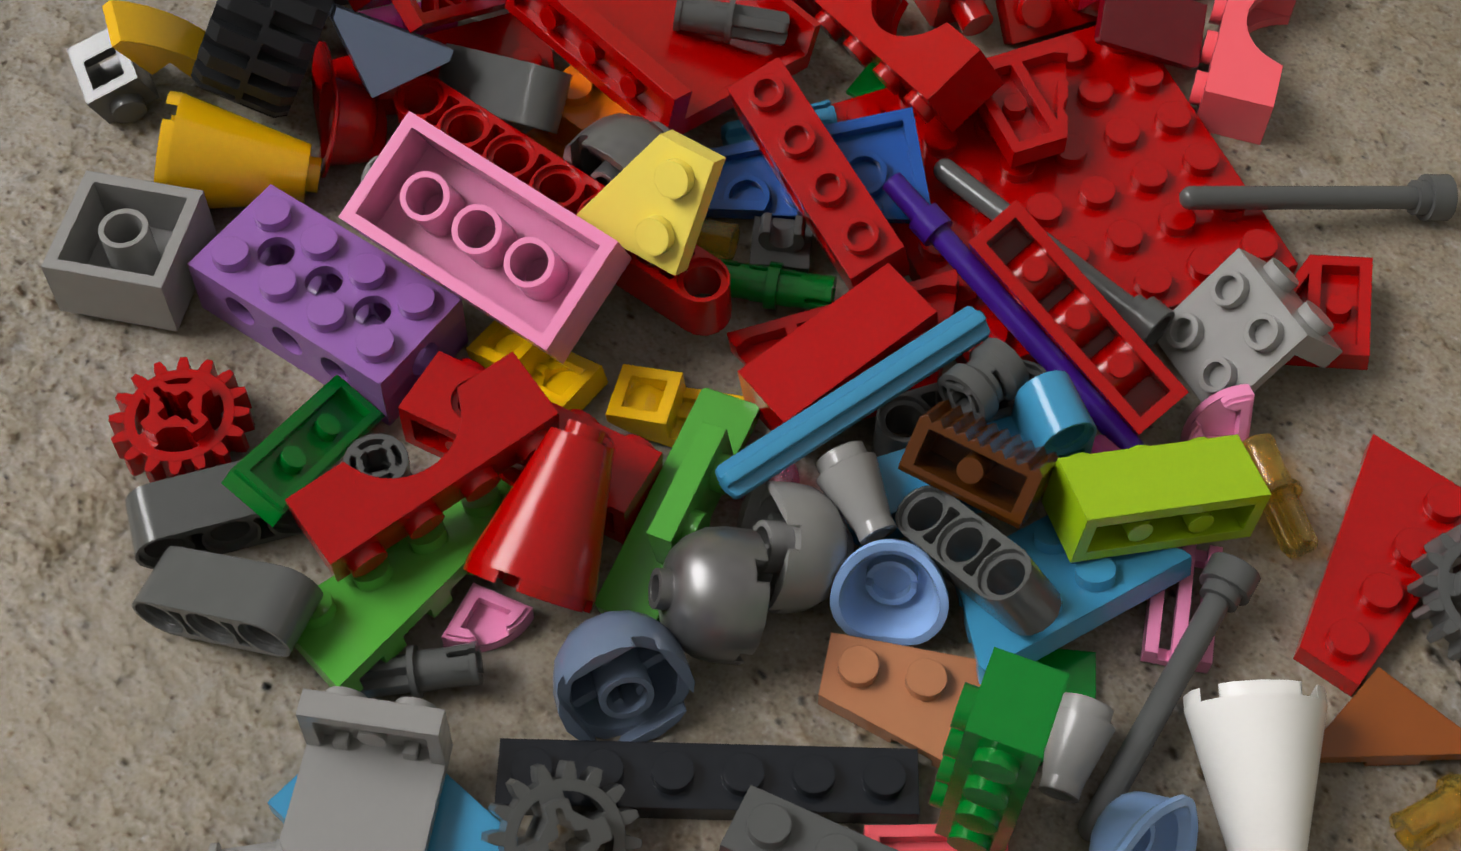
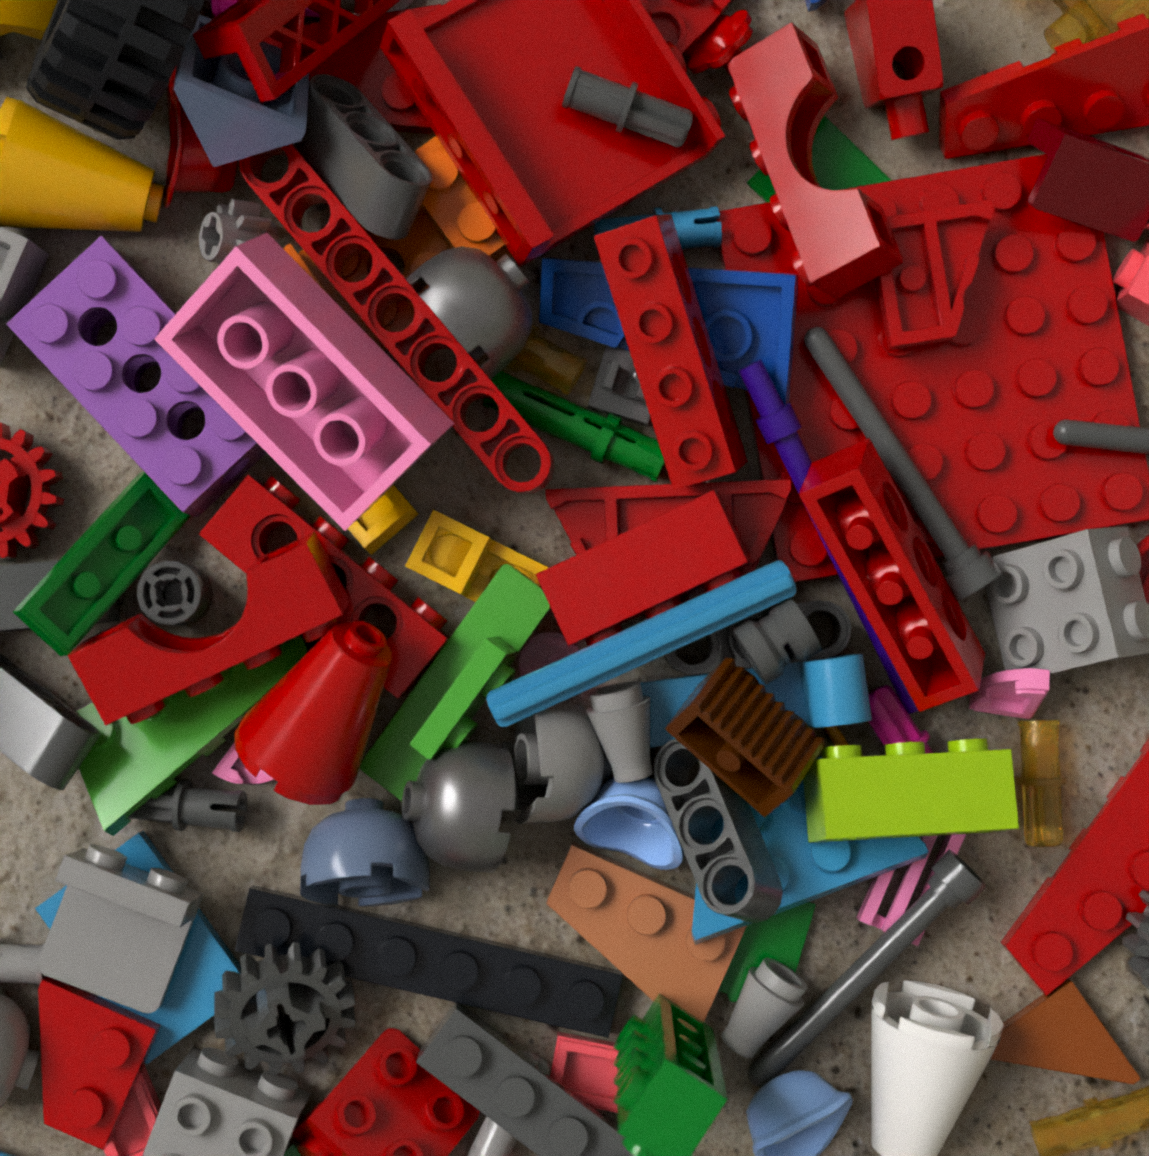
camera: 15 degrees right, 30 degrees up
(659, 201) = (484, 390): light yellow wing -> none

